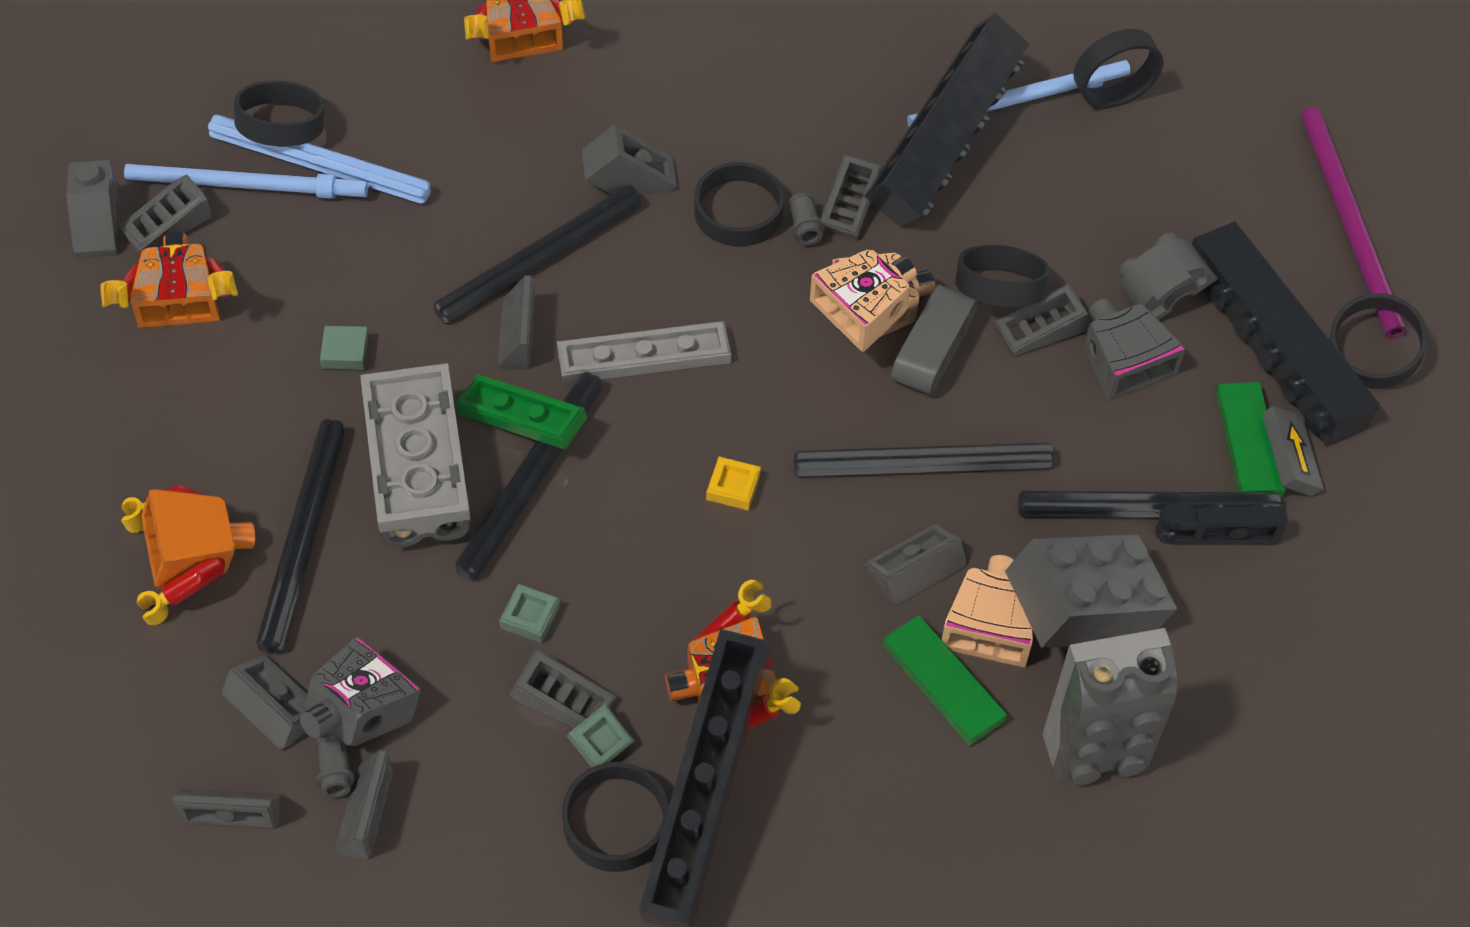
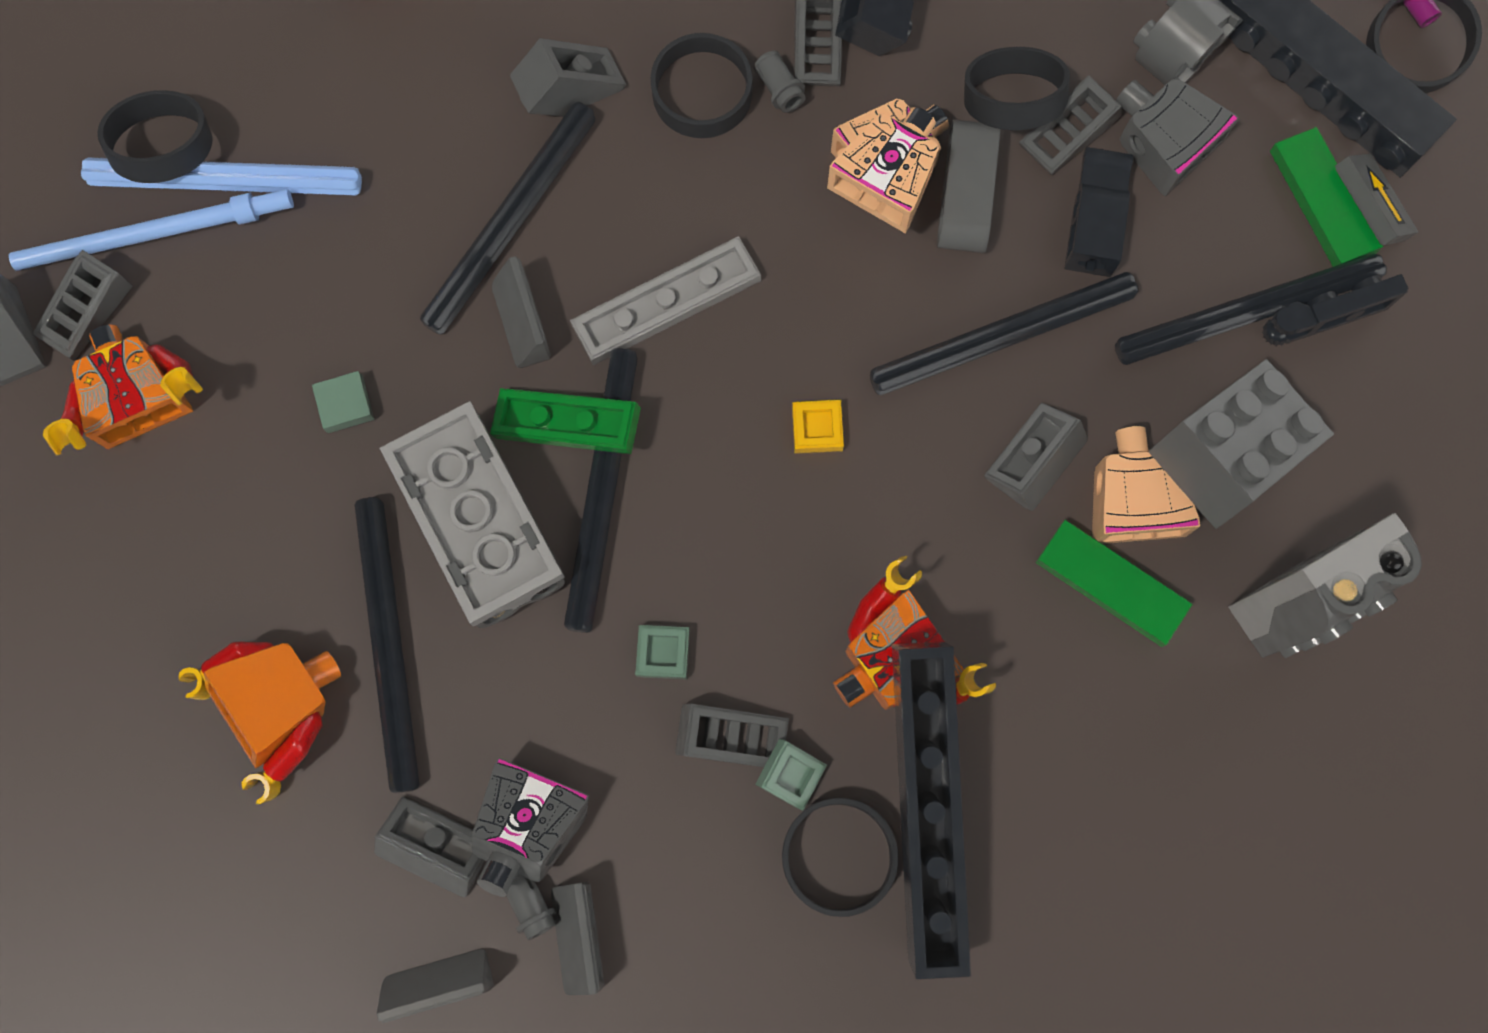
camera: 15 degrees left, 20 degrees up
(1040, 392) = (1099, 213): none -> black piece

